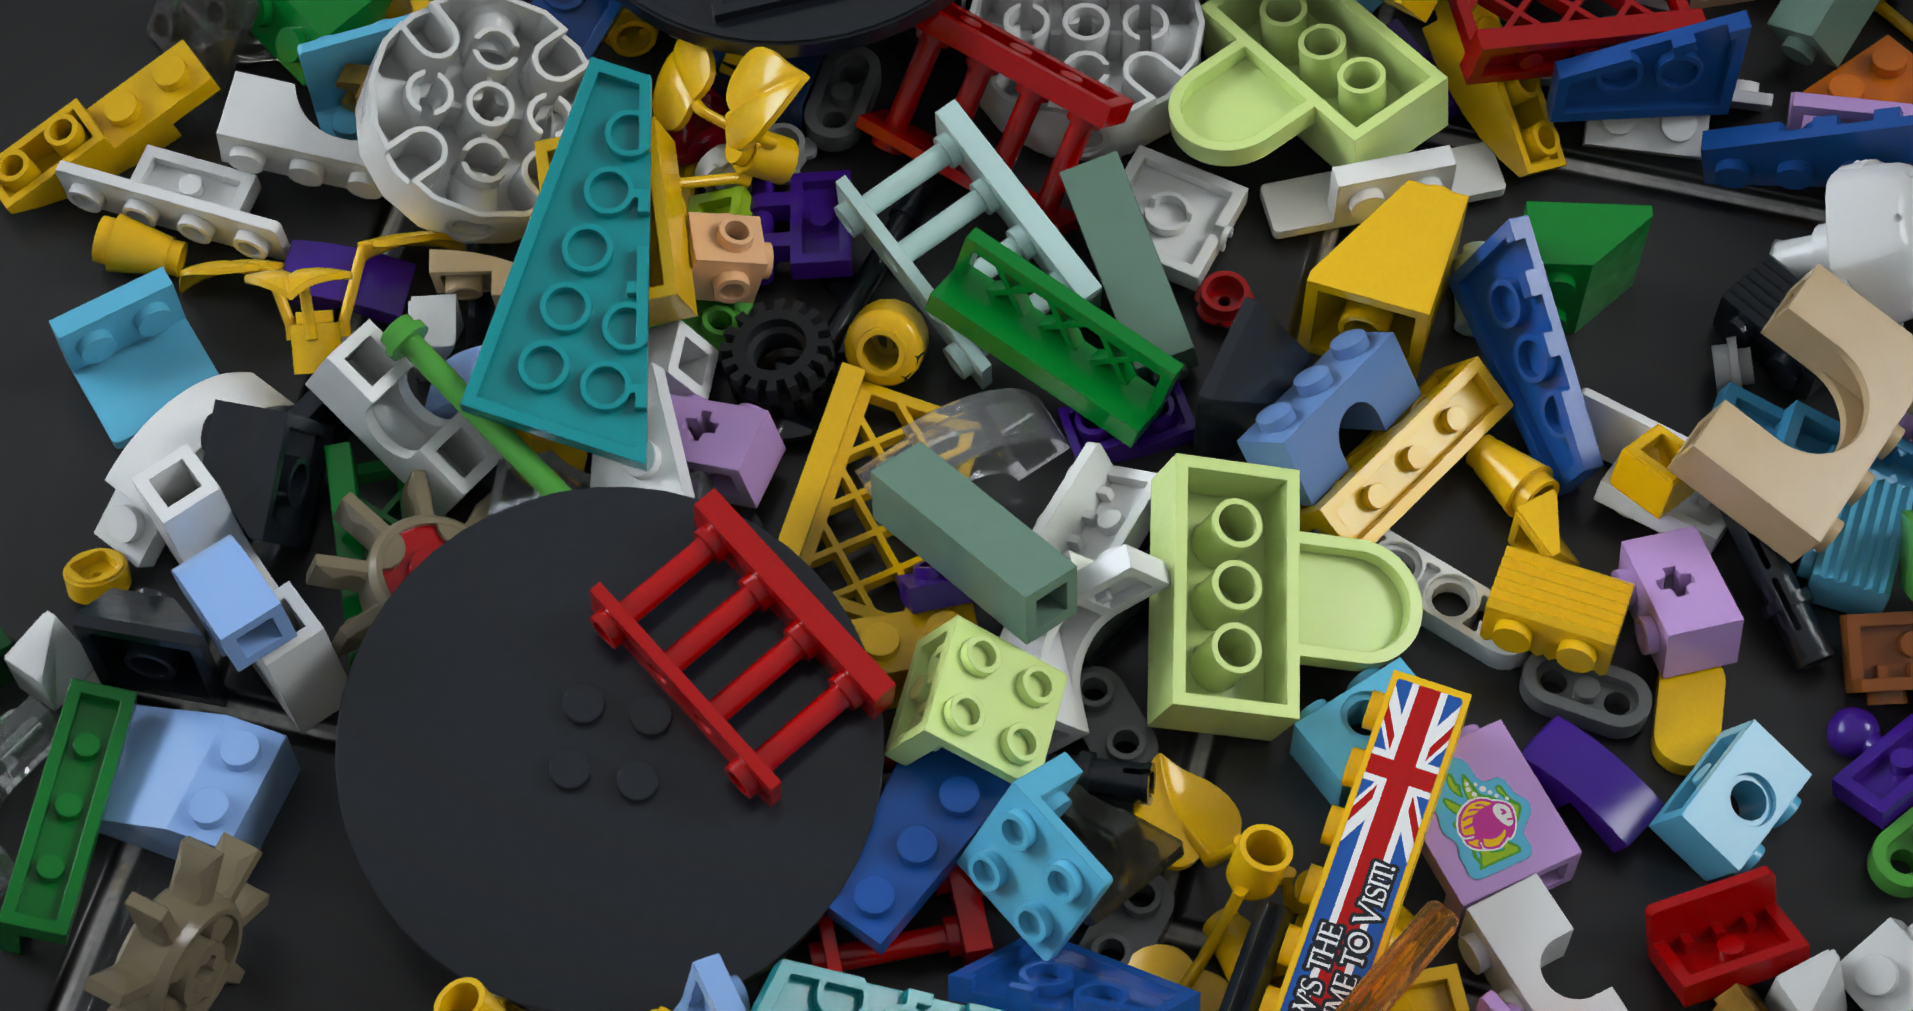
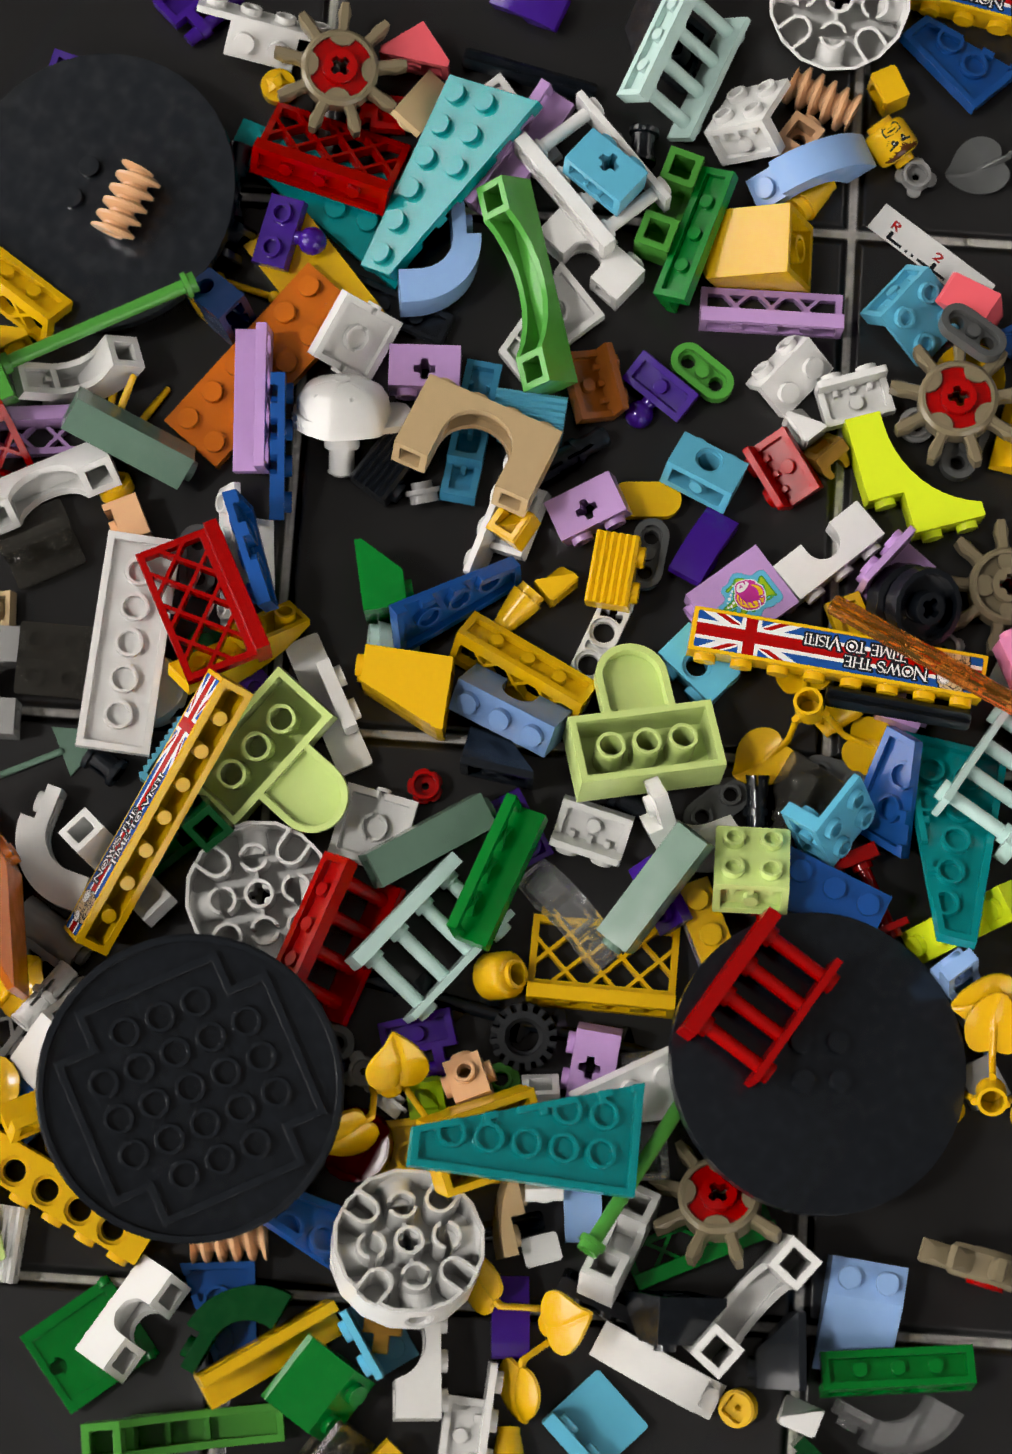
camera: 100 degrees left, 20 degrees up
(234, 603) = (787, 1295): light blue arch -> none

